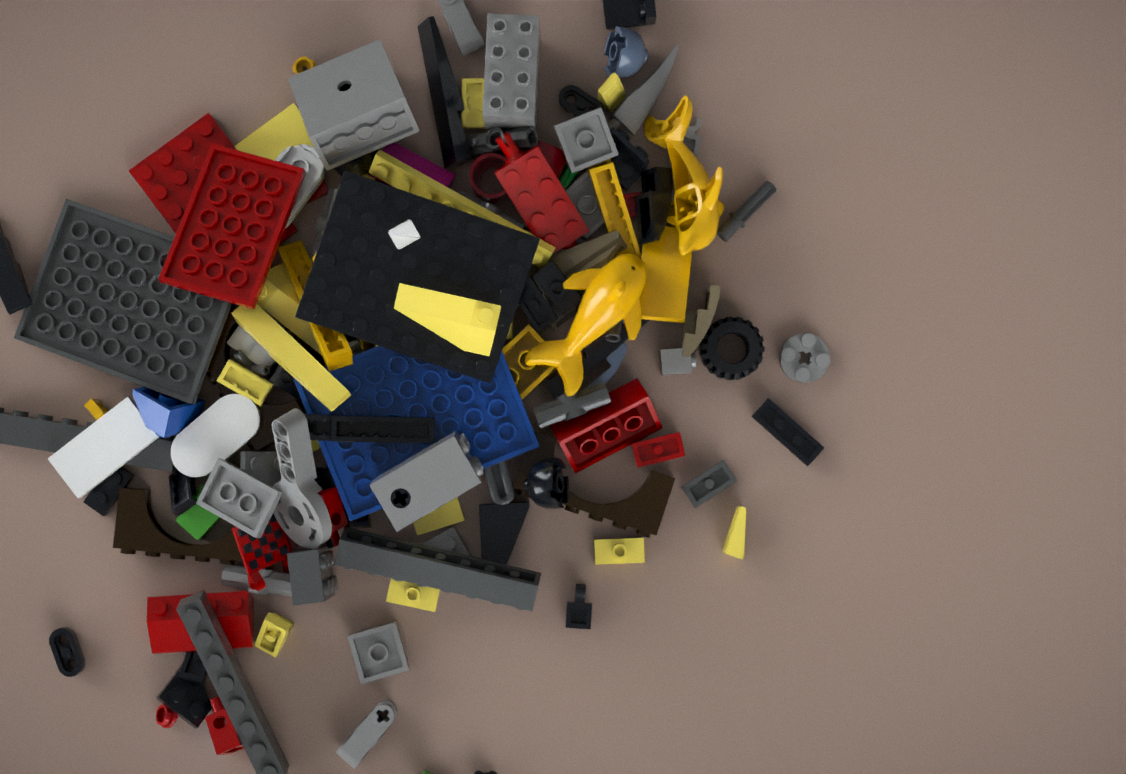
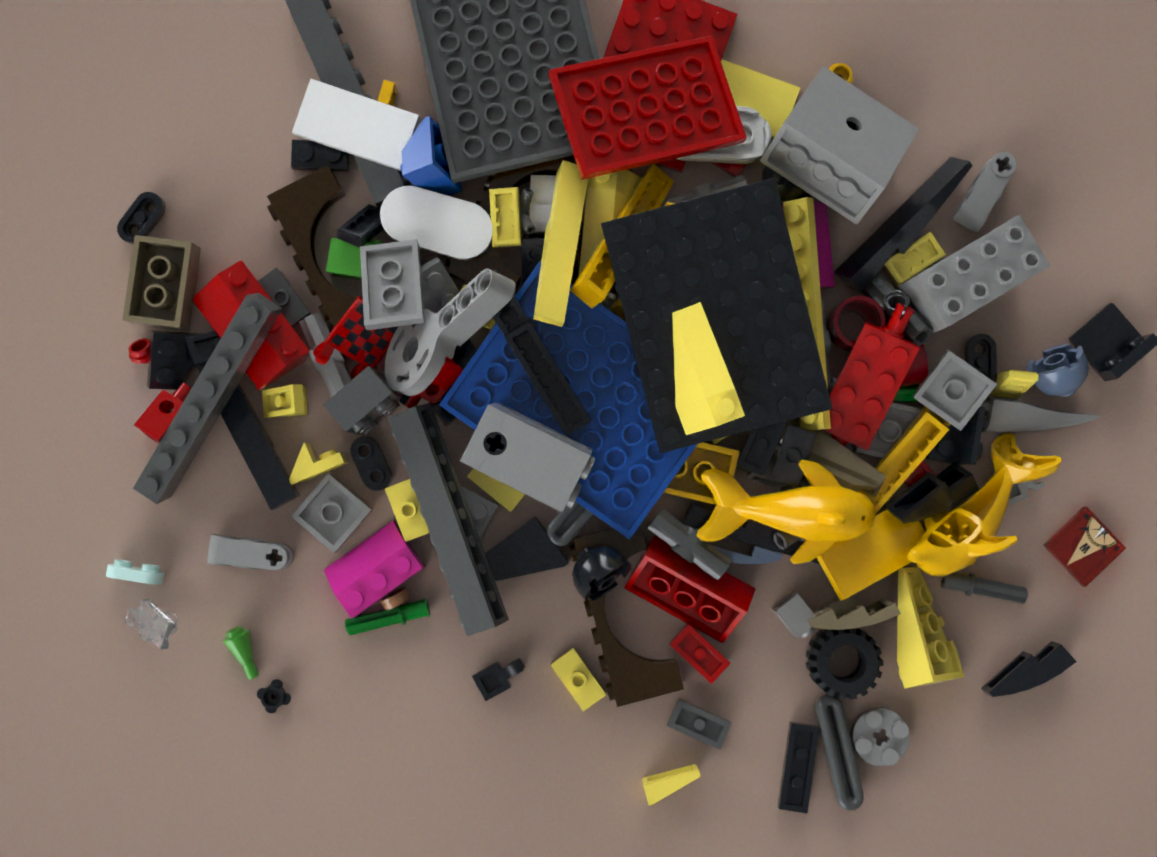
camera: 50 degrees right, 0 degrees up
(125, 667) = (161, 283): none -> dark tan brick
(193, 583) = (284, 296): none -> dark grey plate
(295, 677) = (257, 450): none -> black slope
(334, 647) = (308, 466): none -> light yellow slope
(361, 599) = (372, 462): none -> black plate
(404, 234) = (751, 275): white slope -> none
(440, 649) = (373, 569): none -> dark pink slope
(472, 646) = (395, 598): none -> medium nougat tile
(482, 661) = (388, 617): none -> green axle
(757, 283) = (922, 647): none -> light yellow wedge
(764, 118) = (1084, 546): none -> clear red tile
(796, 395) = (839, 752): none -> dark grey piece
(827, 219) = (1030, 671): none -> black slope

